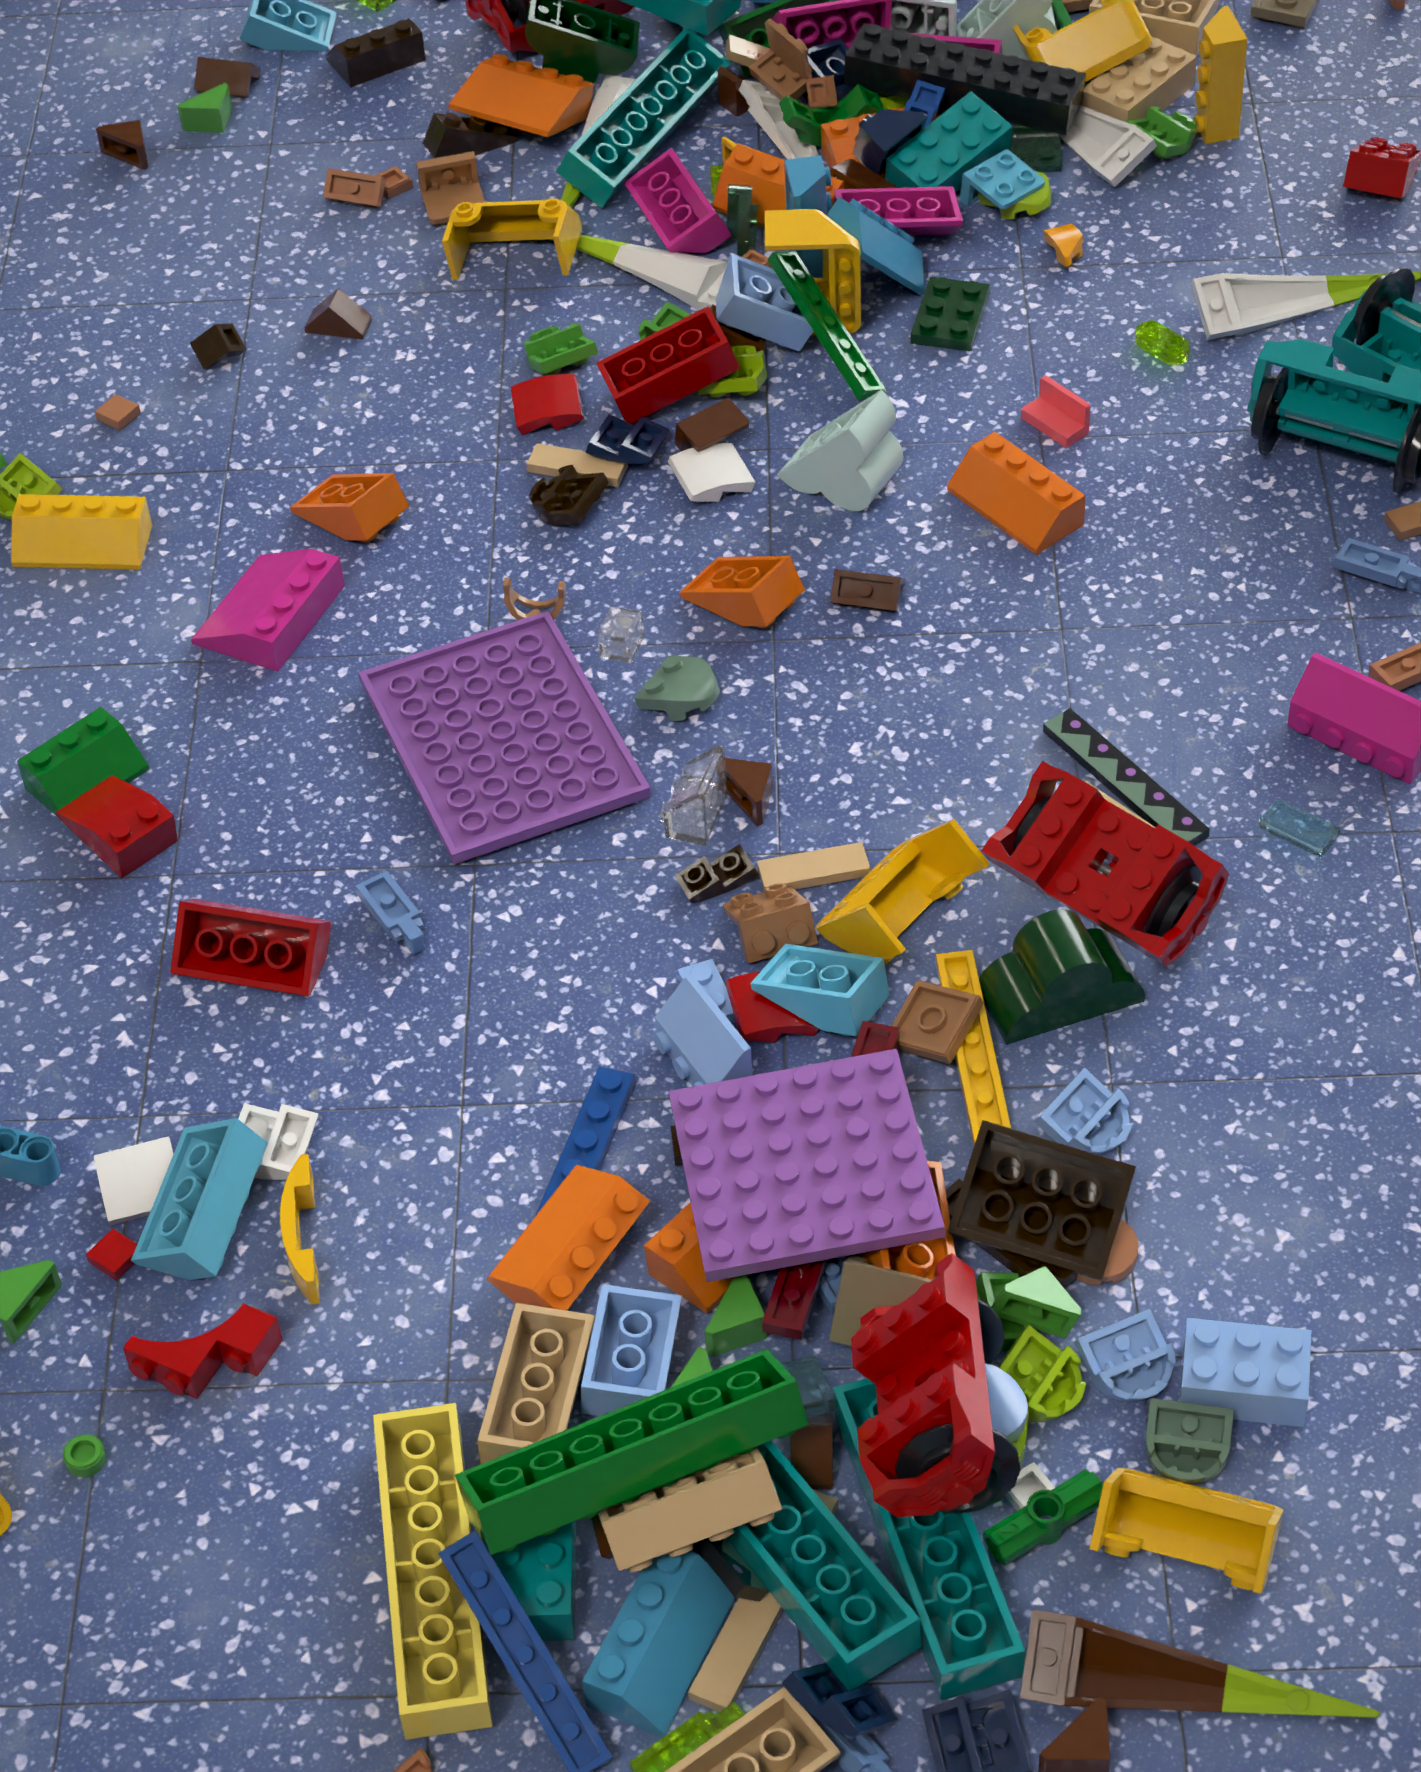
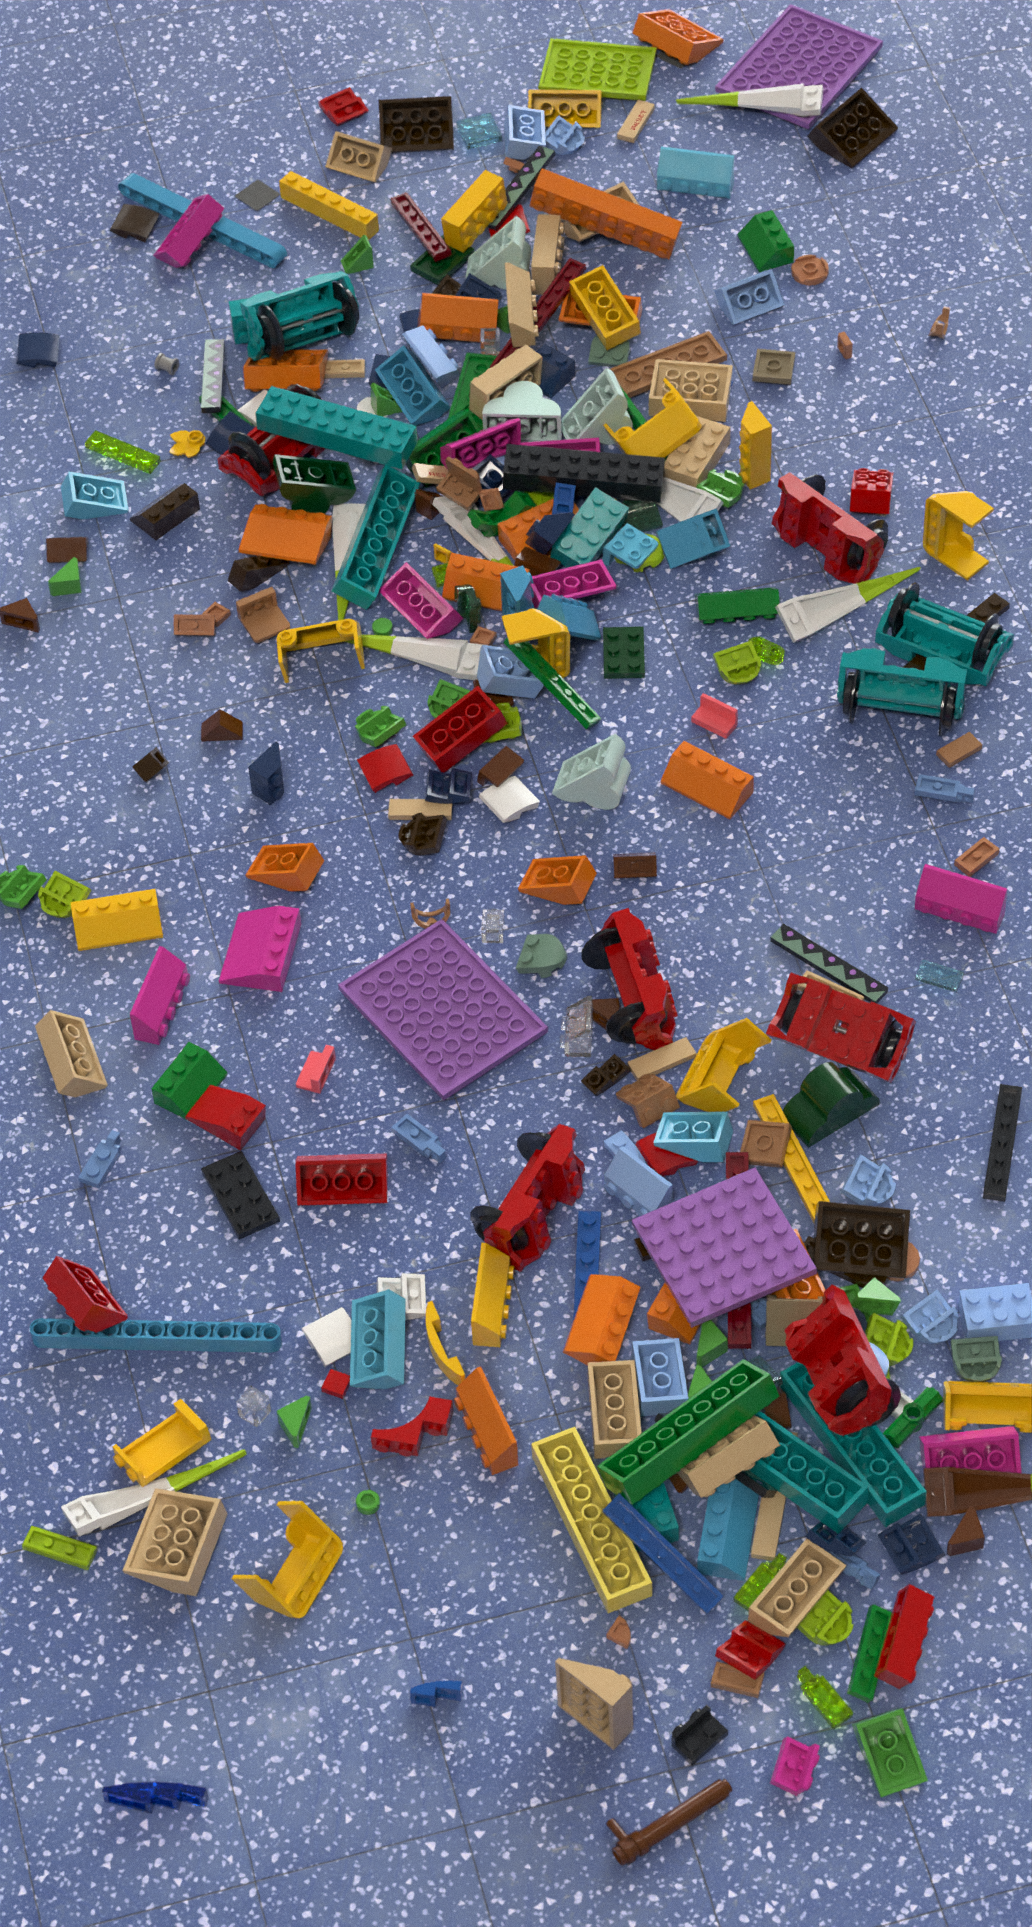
camera: 15 degrees left, 5 degrees up
(86, 640) = (158, 997): none -> dark pink slope
(90, 941) = (240, 1195): none -> black plate
(117, 412) = (101, 825): nougat tile -> none
(282, 785) = (316, 1070): none -> coral panel
(319, 1369) = (486, 1422): none -> orange slope
(372, 380) = (267, 775): none -> dark blue slope
(403, 1167) = (490, 1297): none -> yellow slope
(498, 1052) = (549, 1176): none -> red piece
(615, 230) = (382, 626): none -> bright green tile
(806, 785) = (646, 998): none -> red piece
(1066, 241) = (683, 584): light orange slope -> none
(1098, 183) = (693, 538): none -> dark azure slope
(1114, 350) = (738, 663): none -> lime slope
(1136, 274) = (737, 604): none -> green slope
(1139, 1598) = (978, 1449): none -> dark pink slope
(1320, 213) = (813, 519): none -> red piece
(1332, 1100) = (1002, 1142): none -> black tile

